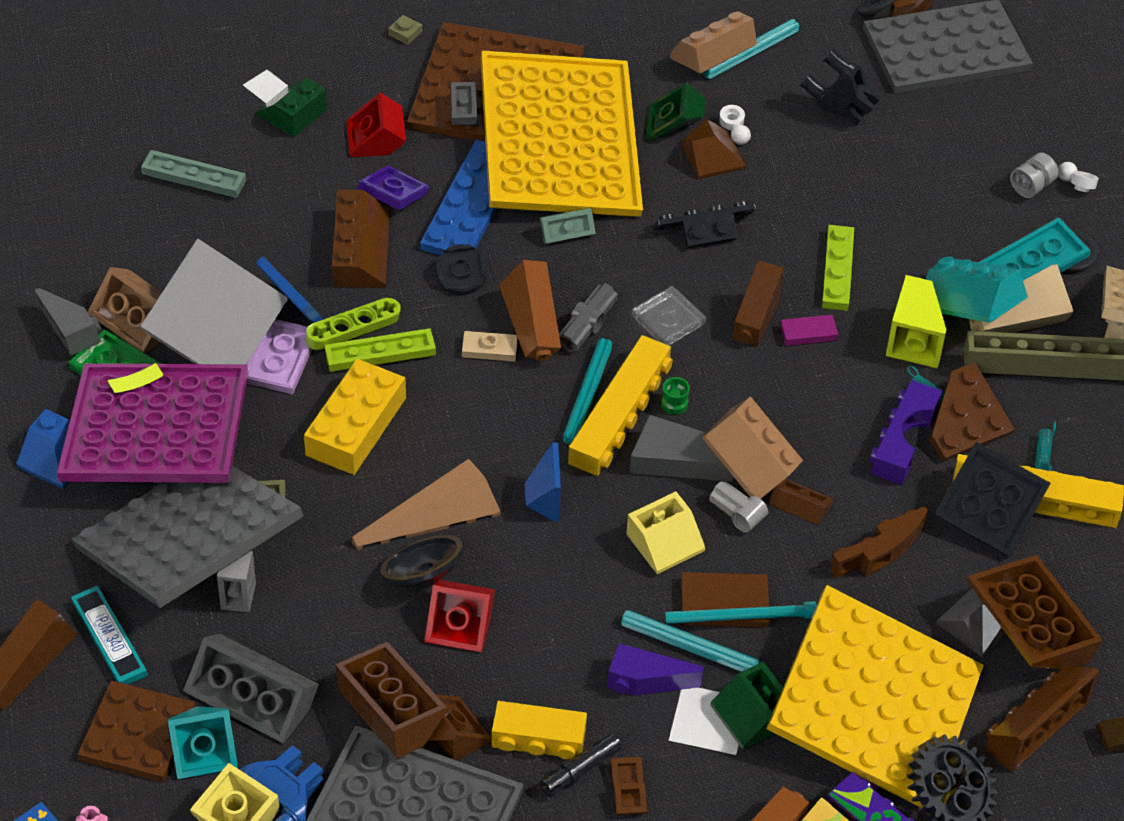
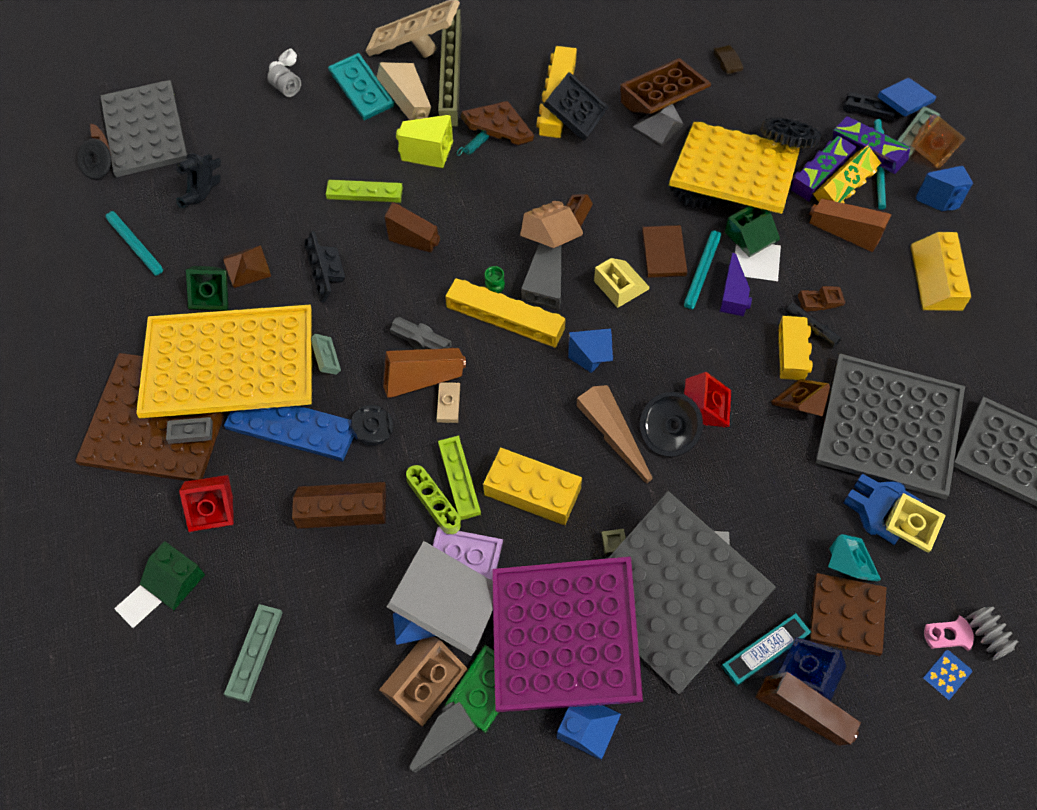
camera: 90 degrees left, 10 degrees up
(67, 669) = (815, 666): none -> clear blue slope
(136, 380) = (517, 657): neon yellow sticker -> none
(250, 687) = (796, 534): dark grey slope -> none
(290, 292) = (411, 543): blue tile -> none
(390, 698) = (801, 430): reddish brown slope -> none
(393, 187) = (279, 482): dark purple tile -> none
(405, 29) = (78, 493): olive plate -> none
(587, 390) = (490, 335): teal axle -> none
(668, 316) = (414, 288): clear tile -> none
(716, 42) = (131, 261): medium nougat slope -> none
(733, 119) = (213, 251): white plate -> none
(743, 510) = (591, 239): light grey piece -> none
(805, 610) = (671, 204): teal bar -> none
(809, 330) = (424, 205): magenta tile -> none
(889, 543) = (610, 163): reddish brown slope -> none
(895, 454) = (534, 160): dark purple arch -> none
(976, 288) = (406, 100): teal slope -> none
(1040, 715) = (733, 91): reddish brown slope -> none
(1044, 454) = (516, 90): teal piece -> none

